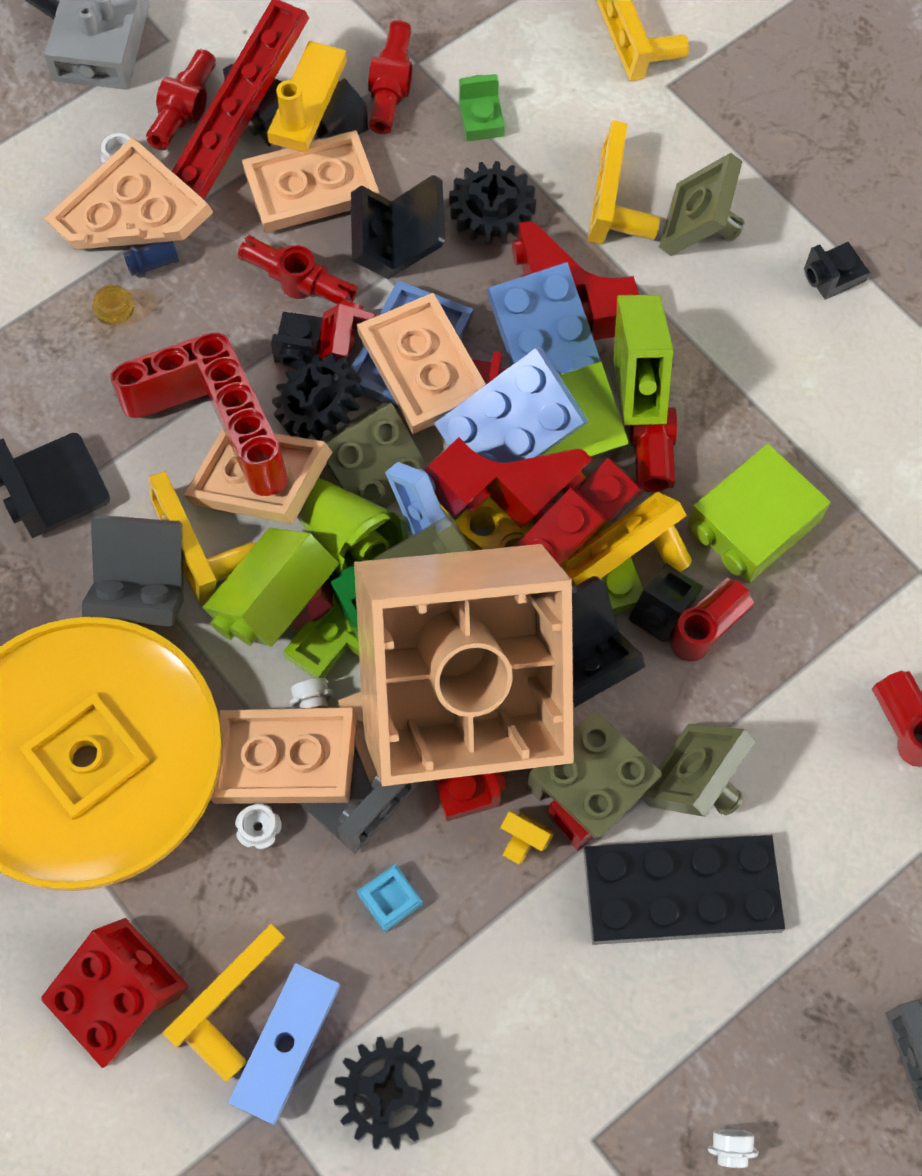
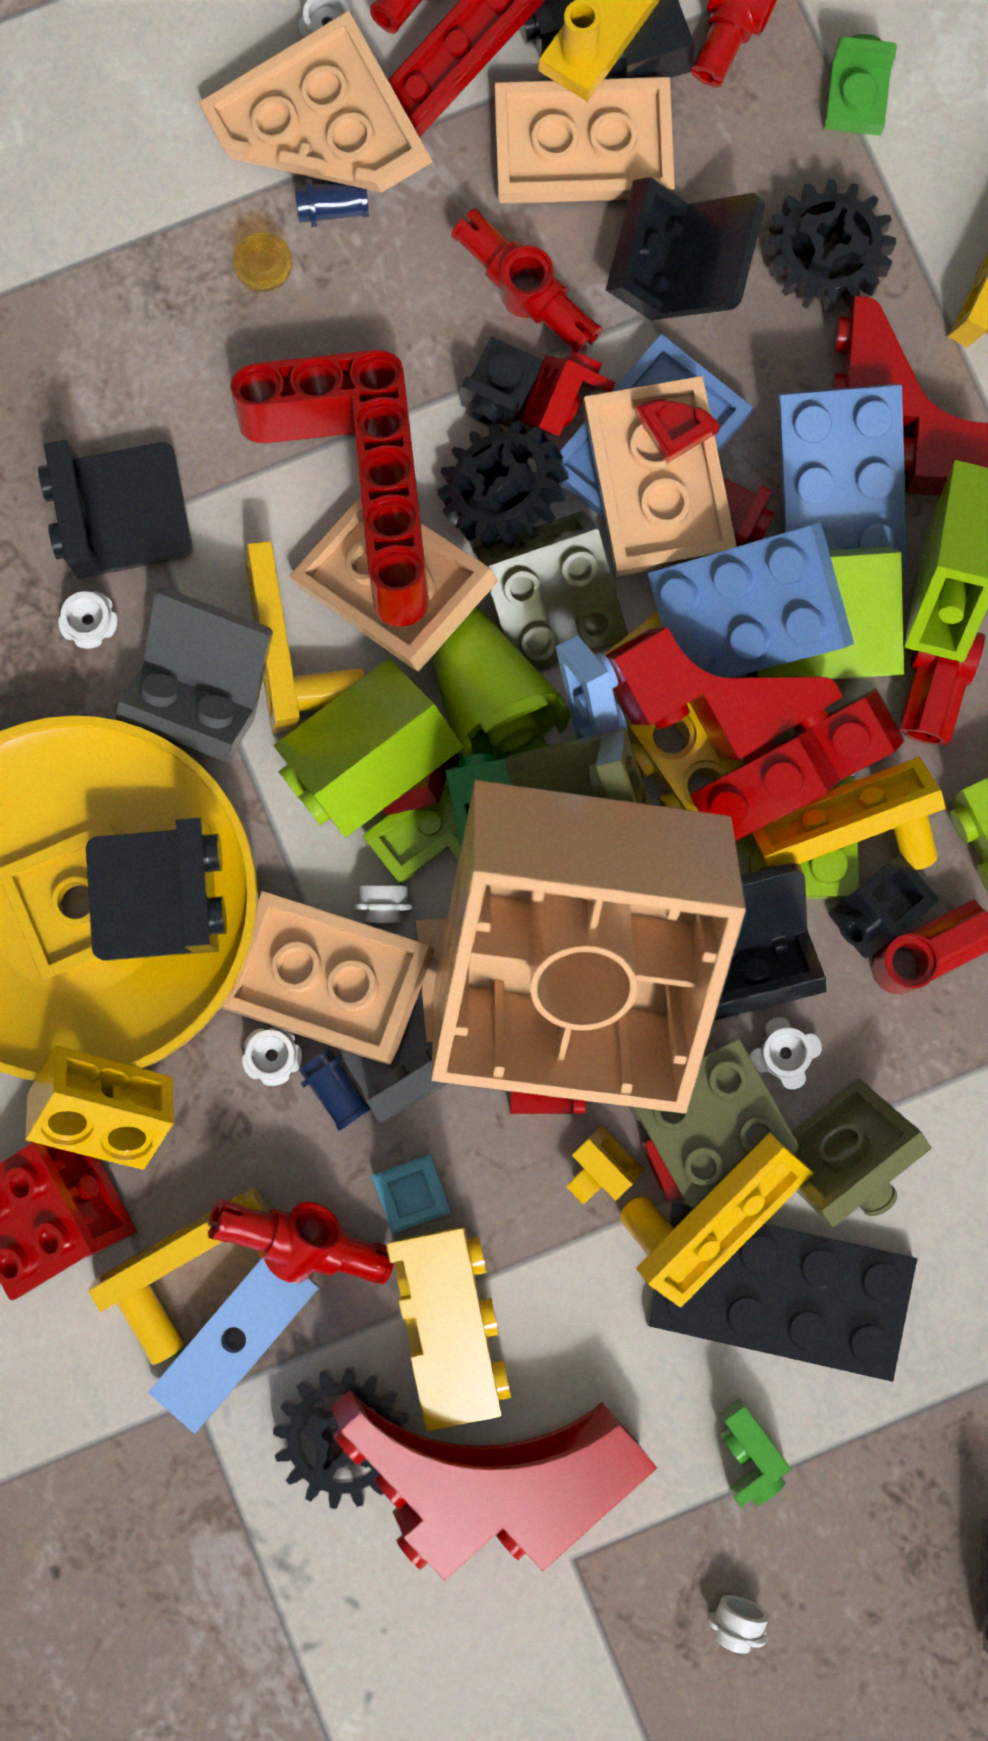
camera: 20 degrees right, 15 degrees up
(38, 554) = (83, 604): none -> white plate
(138, 884) = (99, 1108): none -> yellow brick
(142, 722) = (155, 892): none -> black bracket
(310, 836) = (334, 1089): none -> dark blue pin
(316, 949) = (300, 1241): none -> red pin
(424, 326) = (675, 426): none -> red tile
(444, 979) = (449, 1327): none -> yellow wedge
(540, 1092) = (526, 1492): none -> arch
(622, 843) = (718, 1226): none -> yellow piece
(634, 708) = (802, 1049): none -> white plate
(697, 1004) = (749, 1443): none -> bright green bracket

